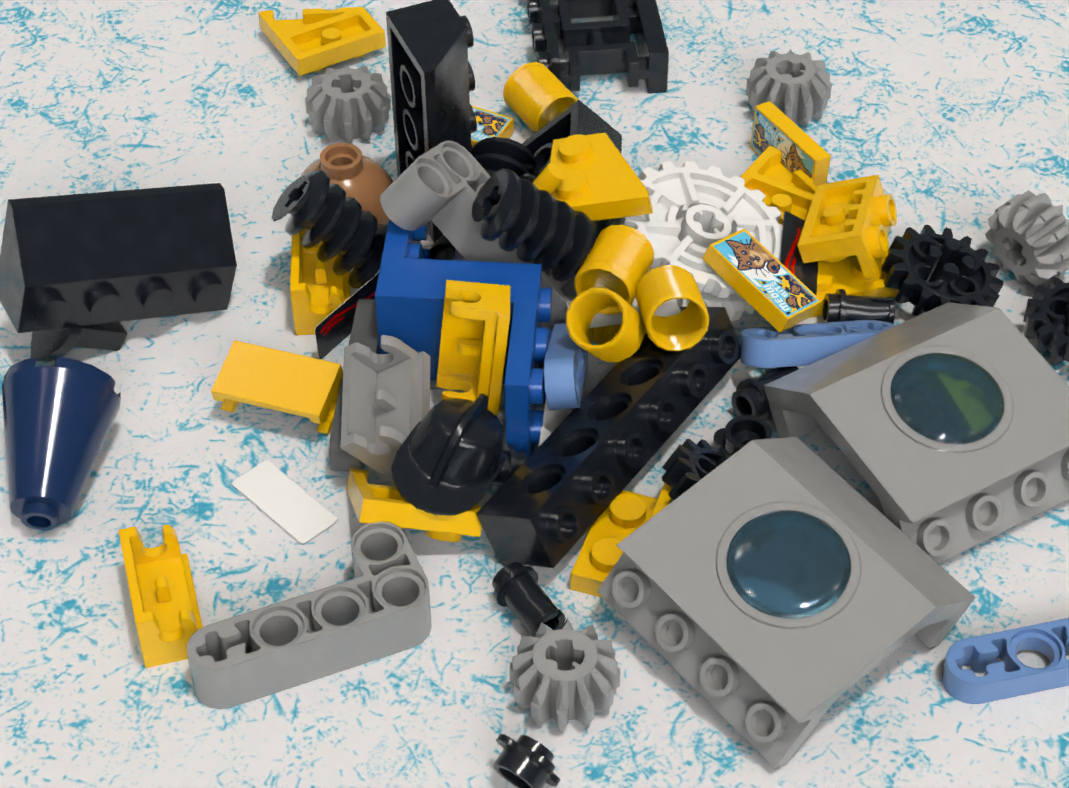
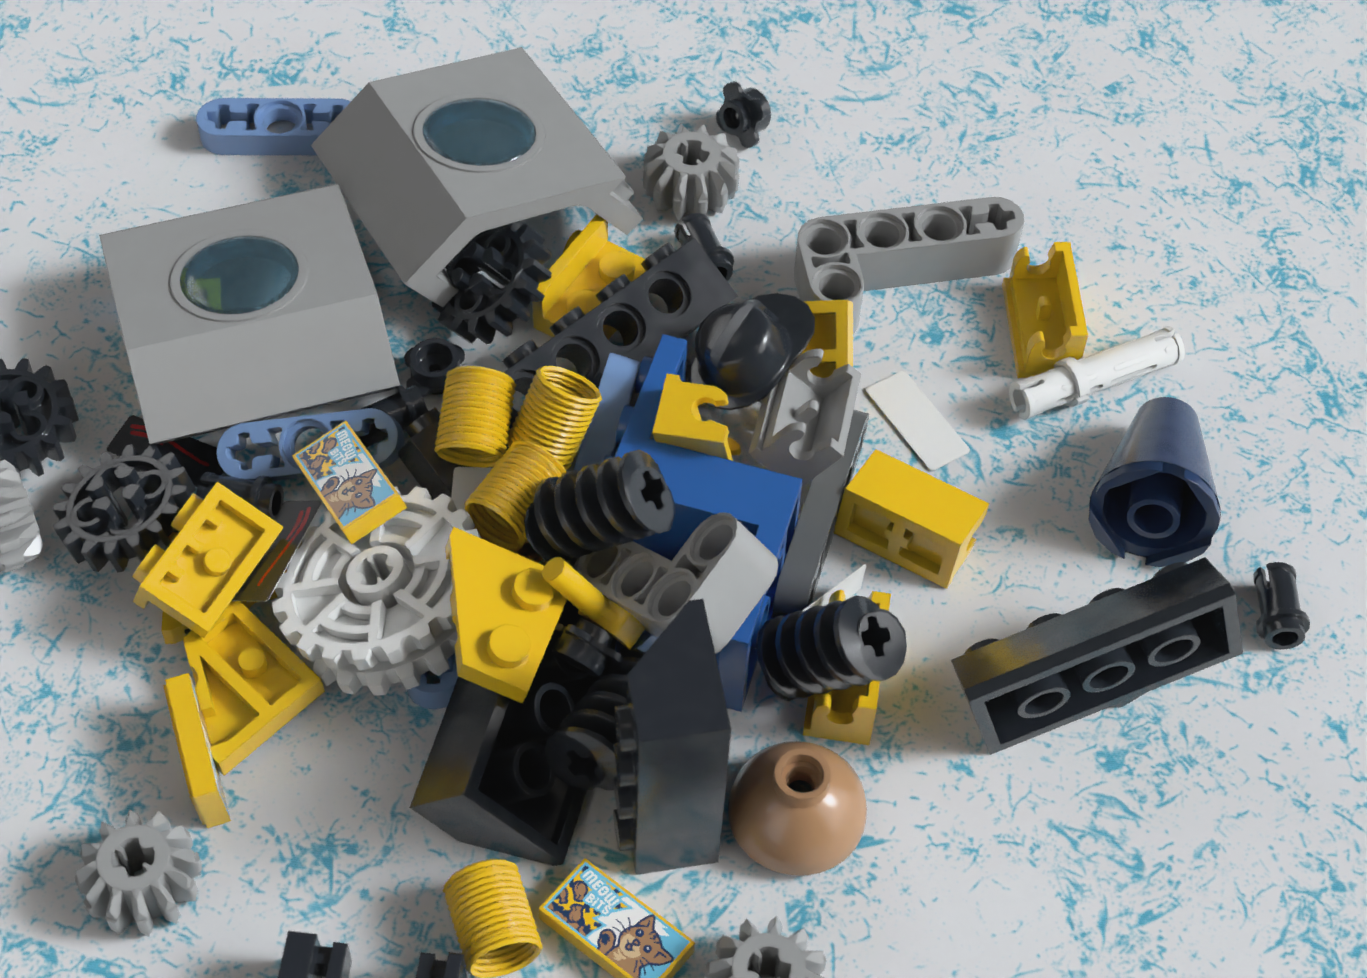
camera: 170 degrees left, 10 degrees up
(102, 554) = (1077, 379): none -> white pin

